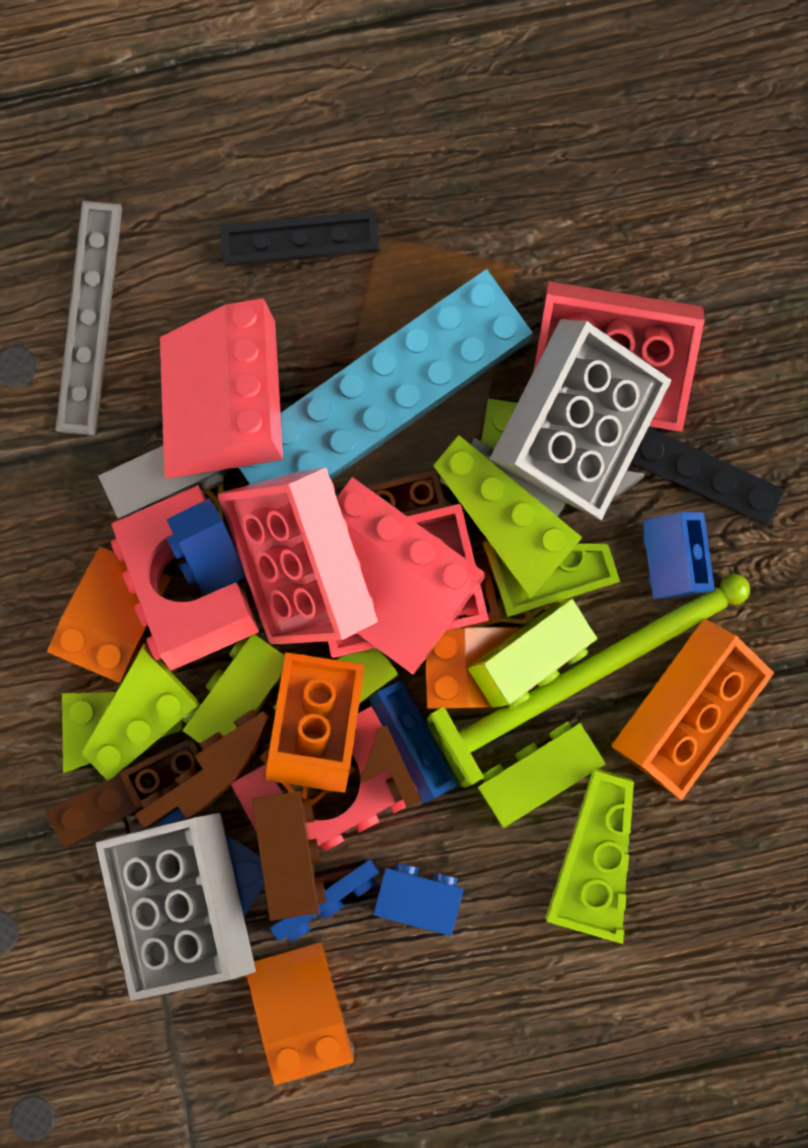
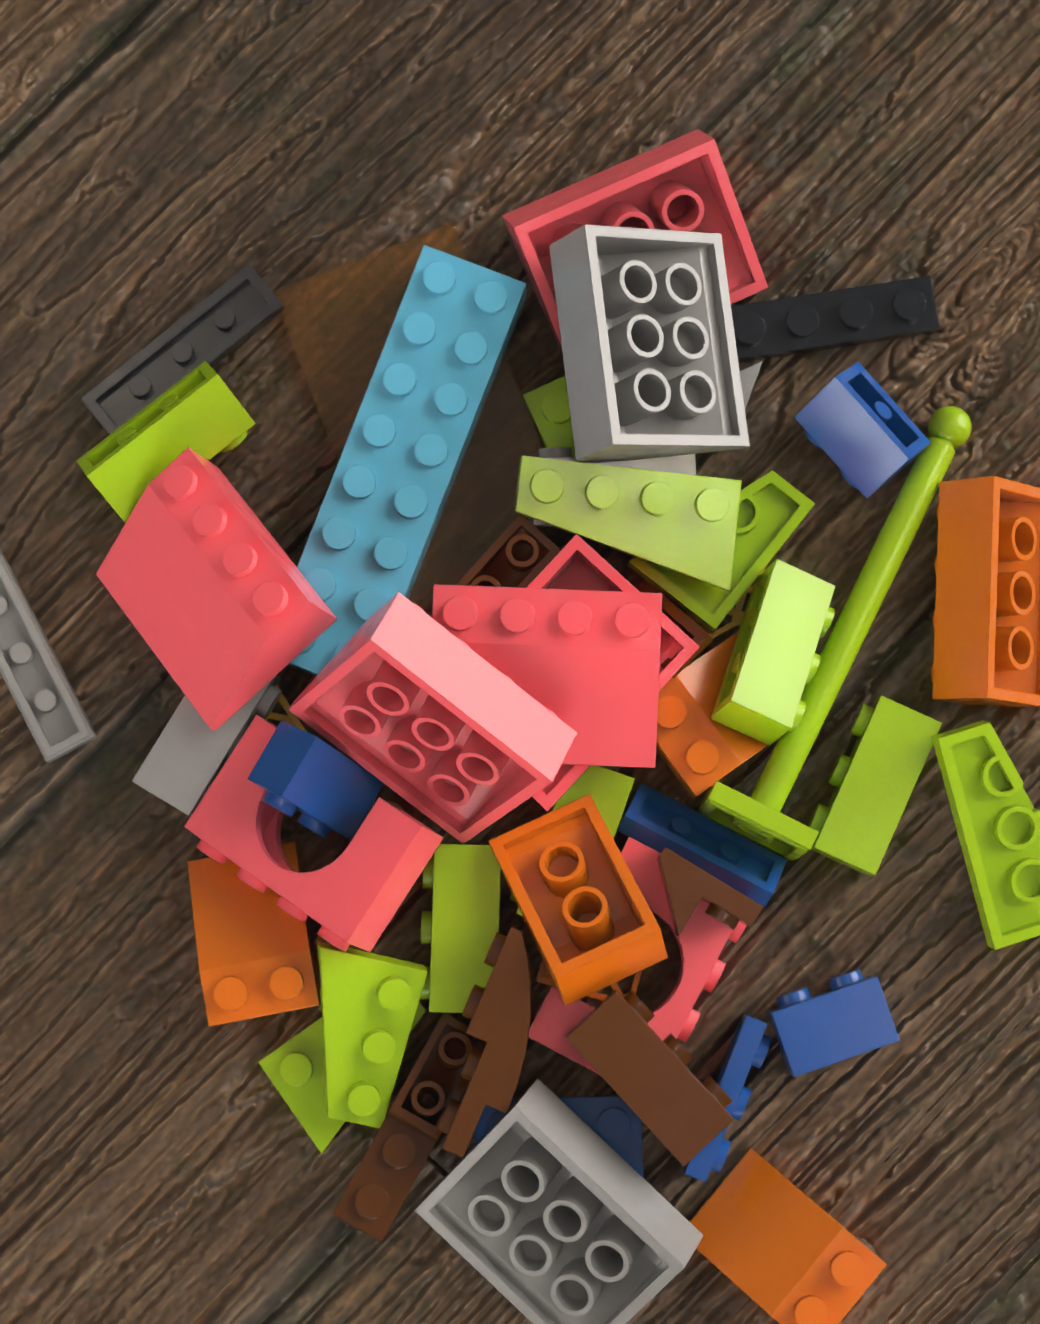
camera: 30 degrees left, 0 degrees up
(280, 279) = (191, 414): none -> lime brick

